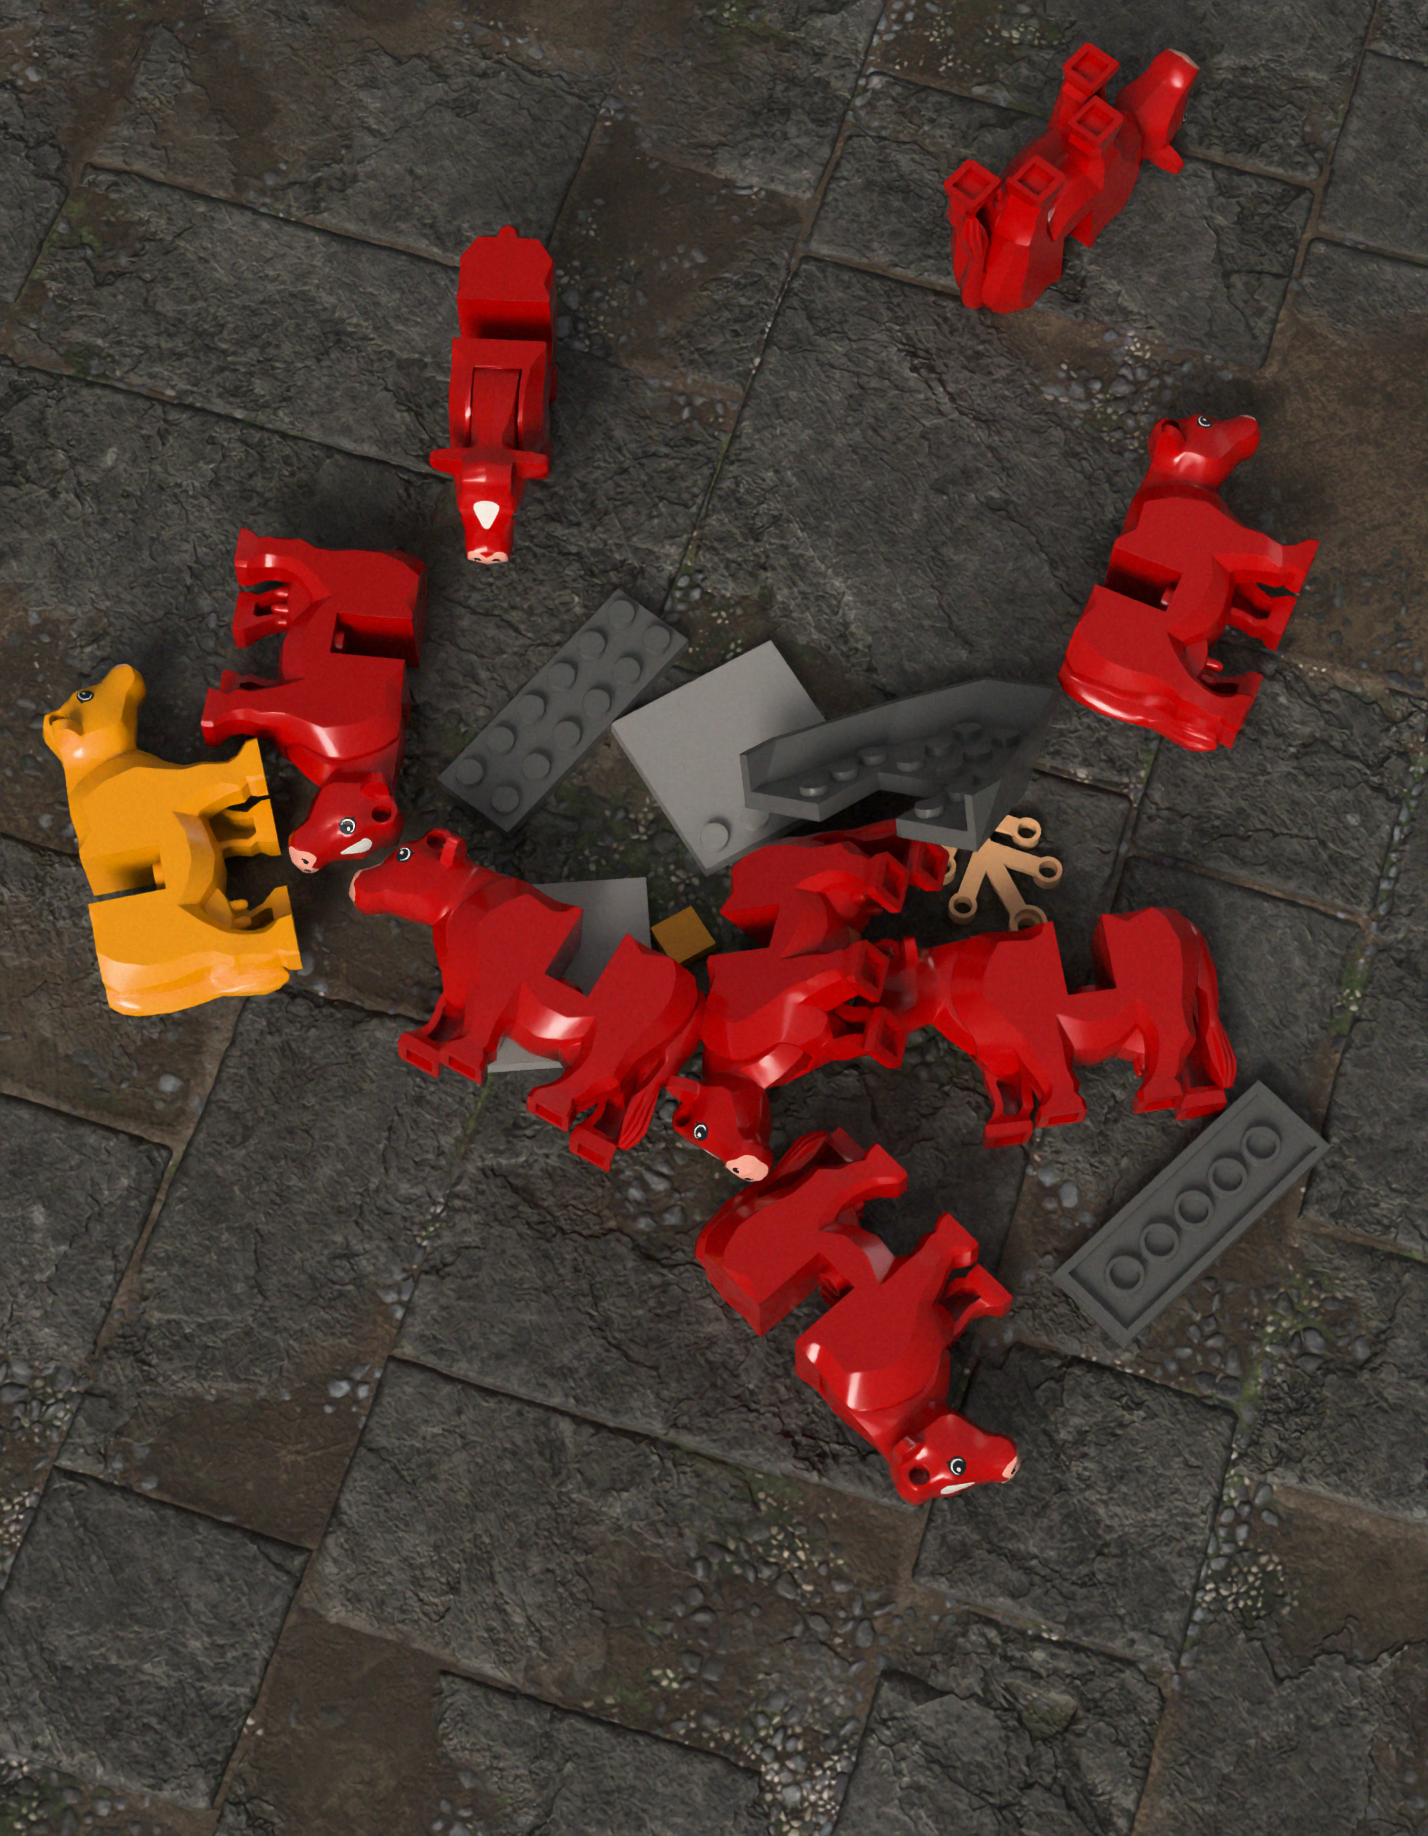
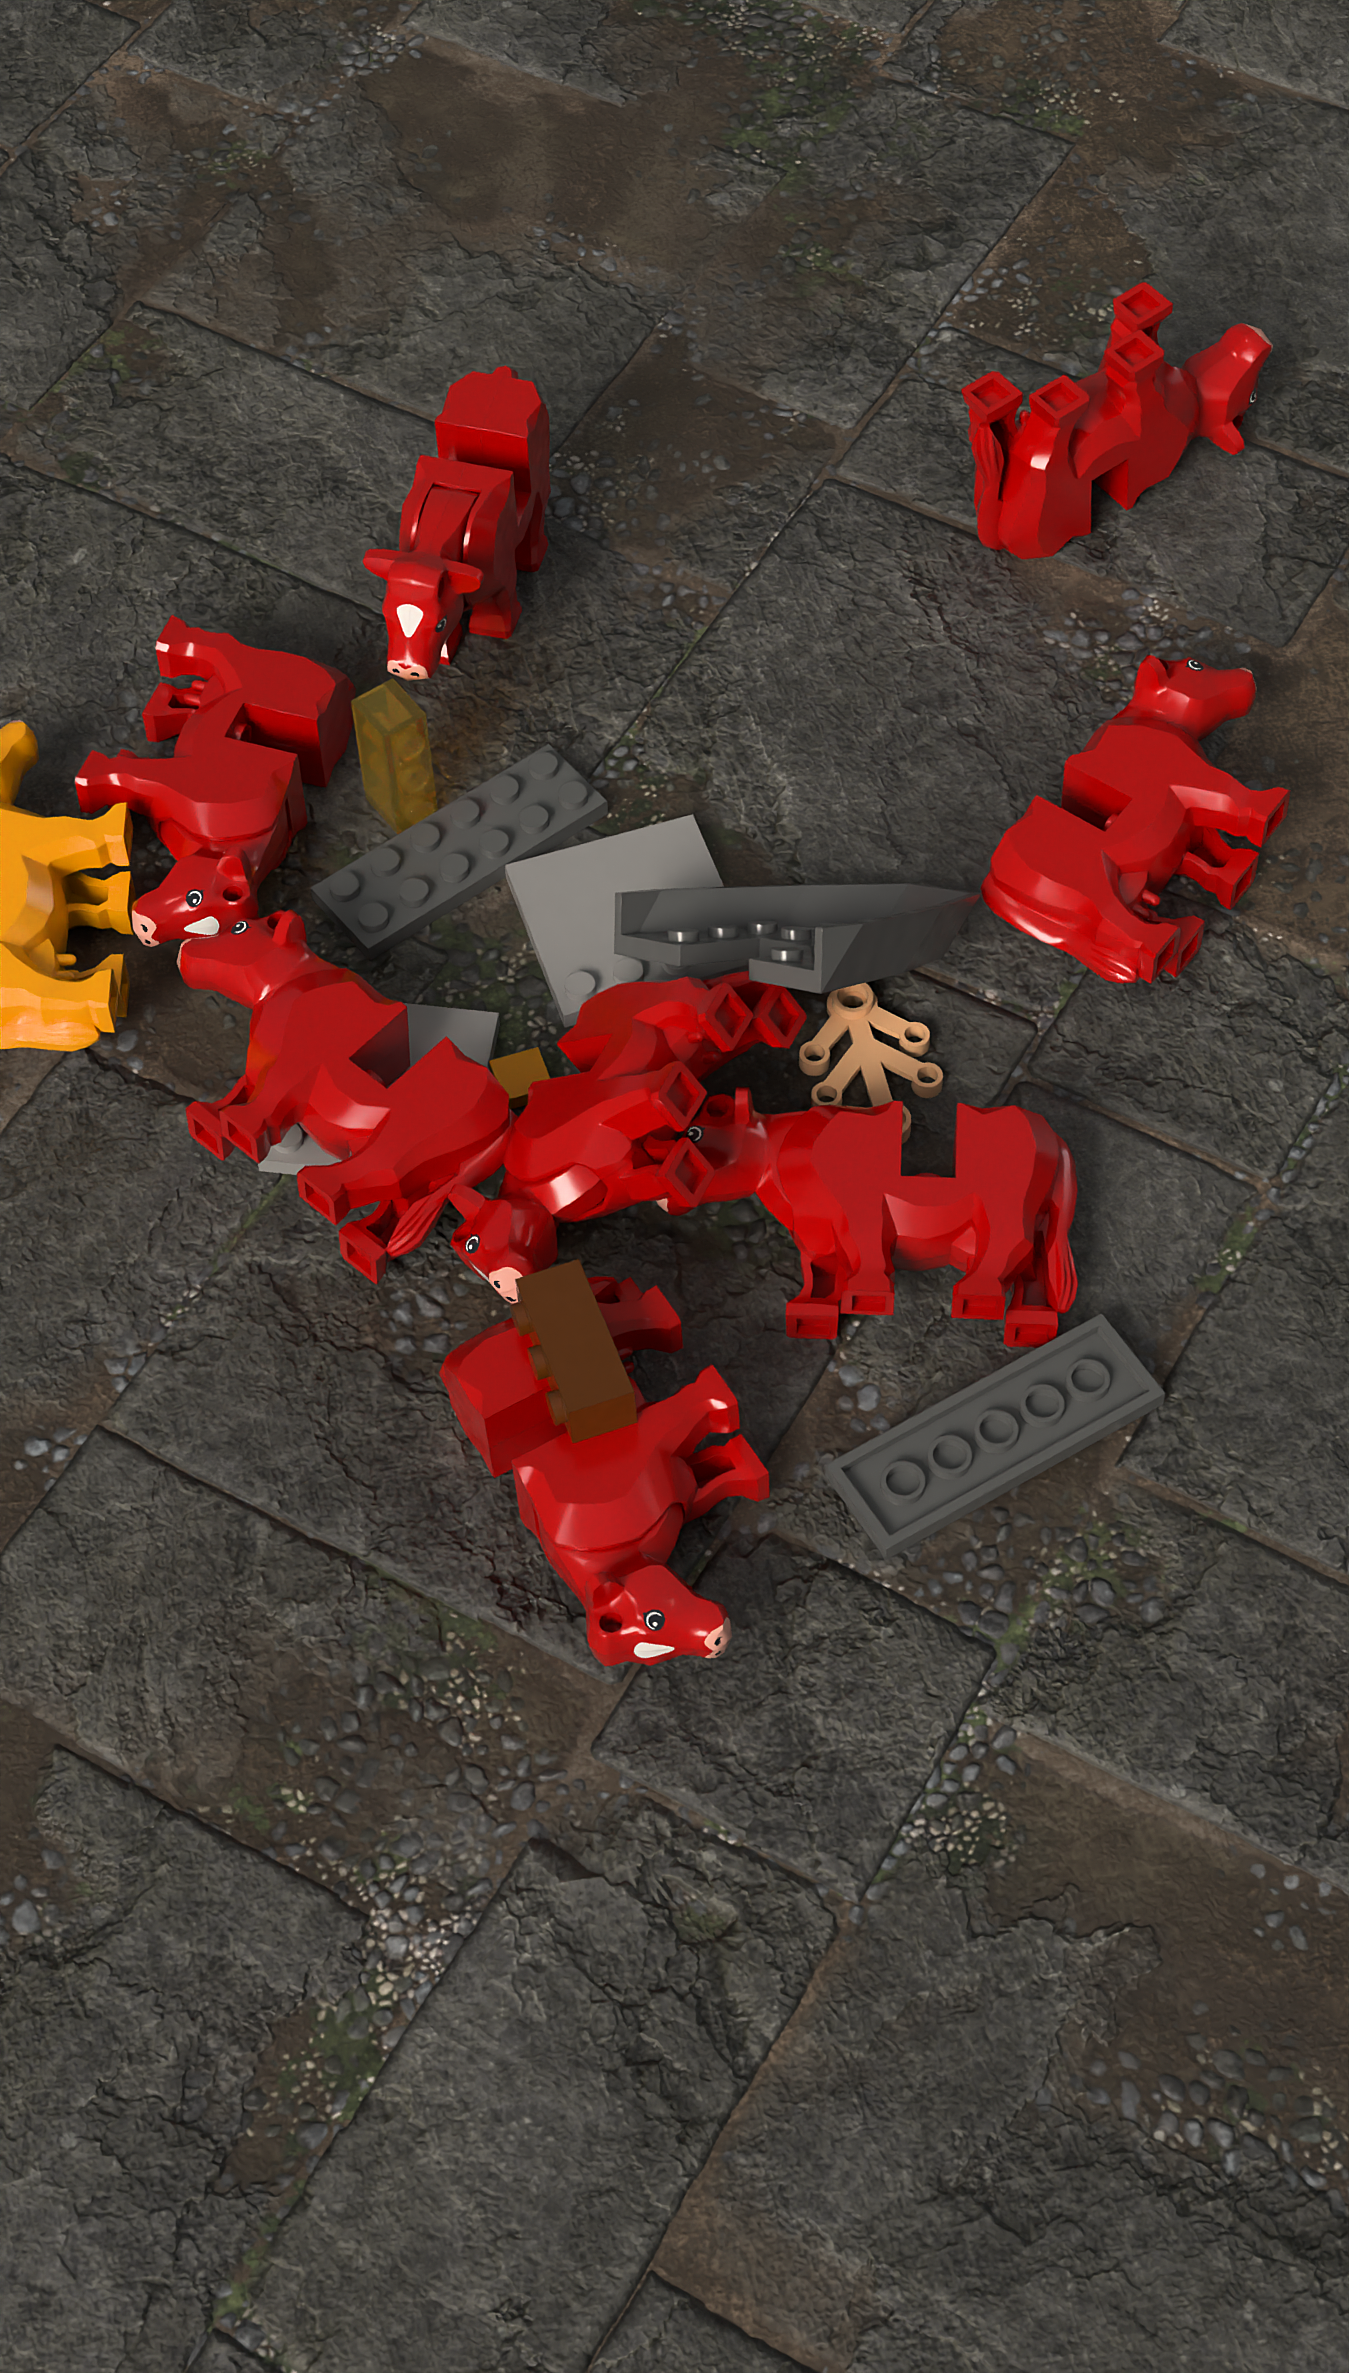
camera: 15 degrees right, 10 degrees down
(490, 639) = (395, 755): none -> clear yellow brick
(827, 1229) = (573, 1352): none -> reddish brown brick

